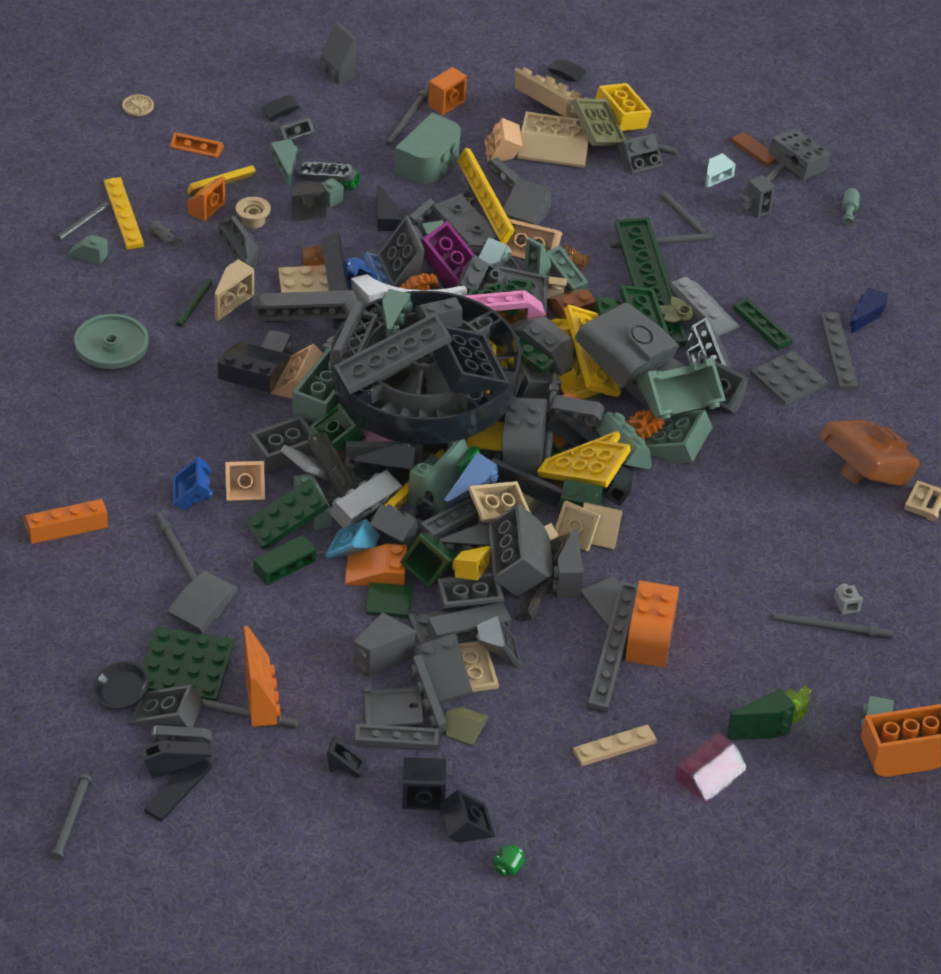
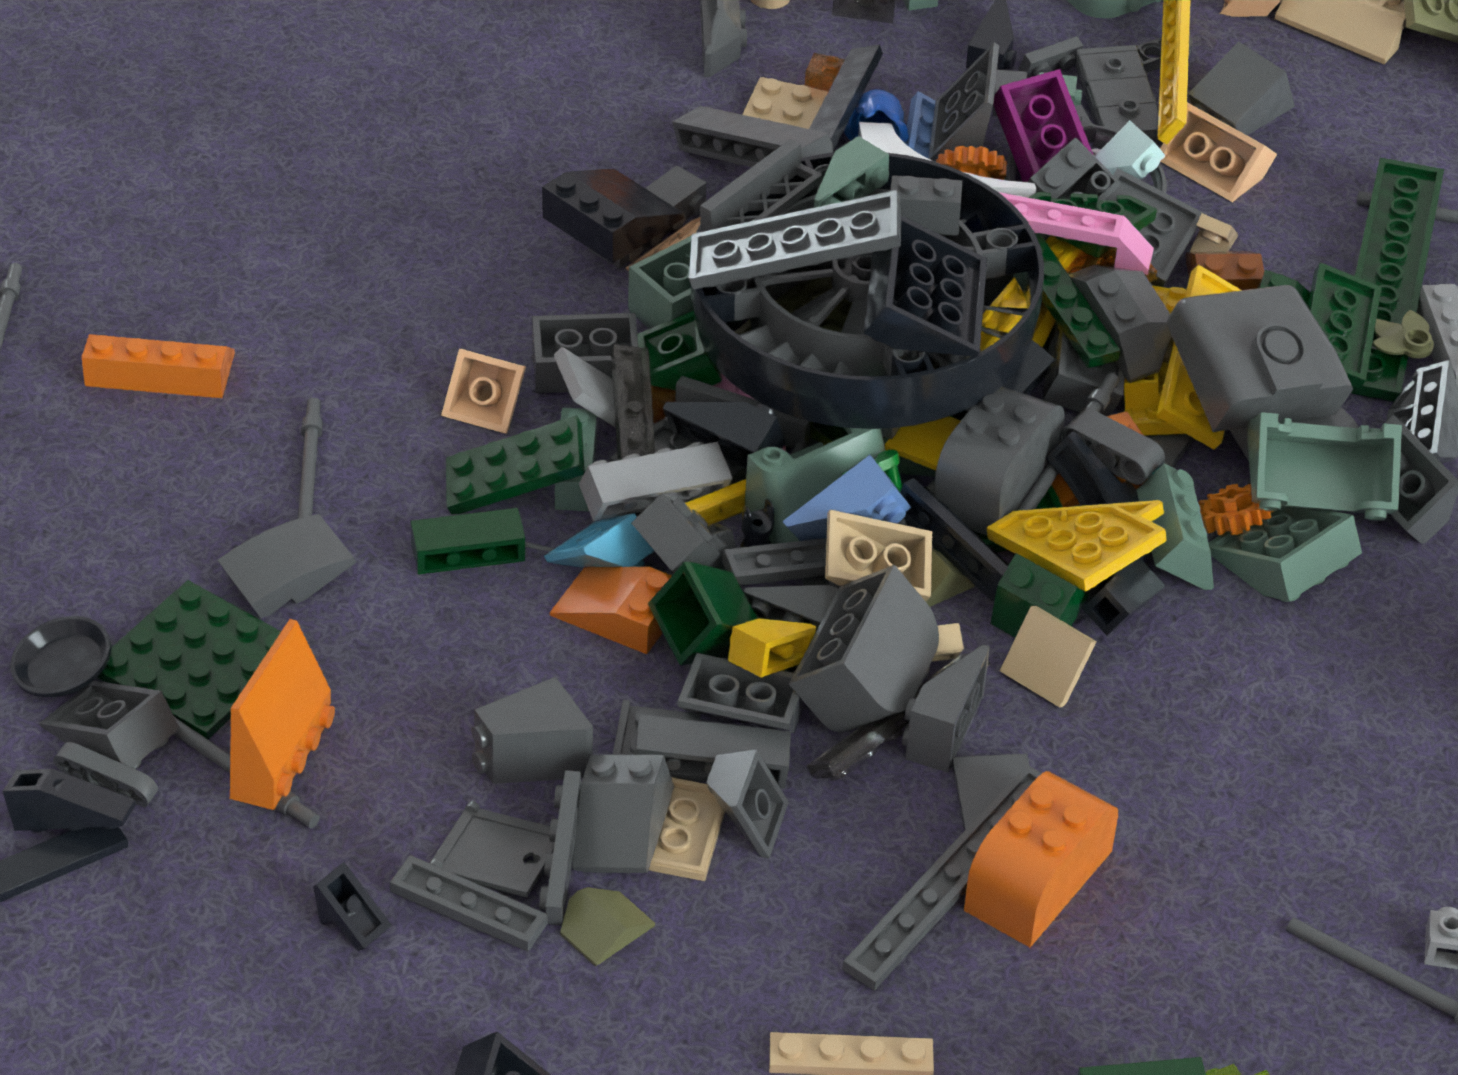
camera: 25 degrees right, 0 degrees up
(111, 341) = (412, 111): sand green dish -> none
(192, 484) = (392, 370): blue brick -> none
(196, 299) = (591, 92): dark green bar -> none
(234, 288) = (655, 86): tan slope -> none
(389, 599) = (606, 664): dark green piece -> none
(423, 783) = (457, 998): black slope -> none
(503, 172) = (1232, 27): dark grey beam -> none
(536, 258) = (1198, 181): sand green slope -> none
(567, 269) = (1251, 213): sand green plate -> none
(577, 257) = (1279, 199): clear orange piece -> none
(578, 518) = (1013, 641): tan tile -> none

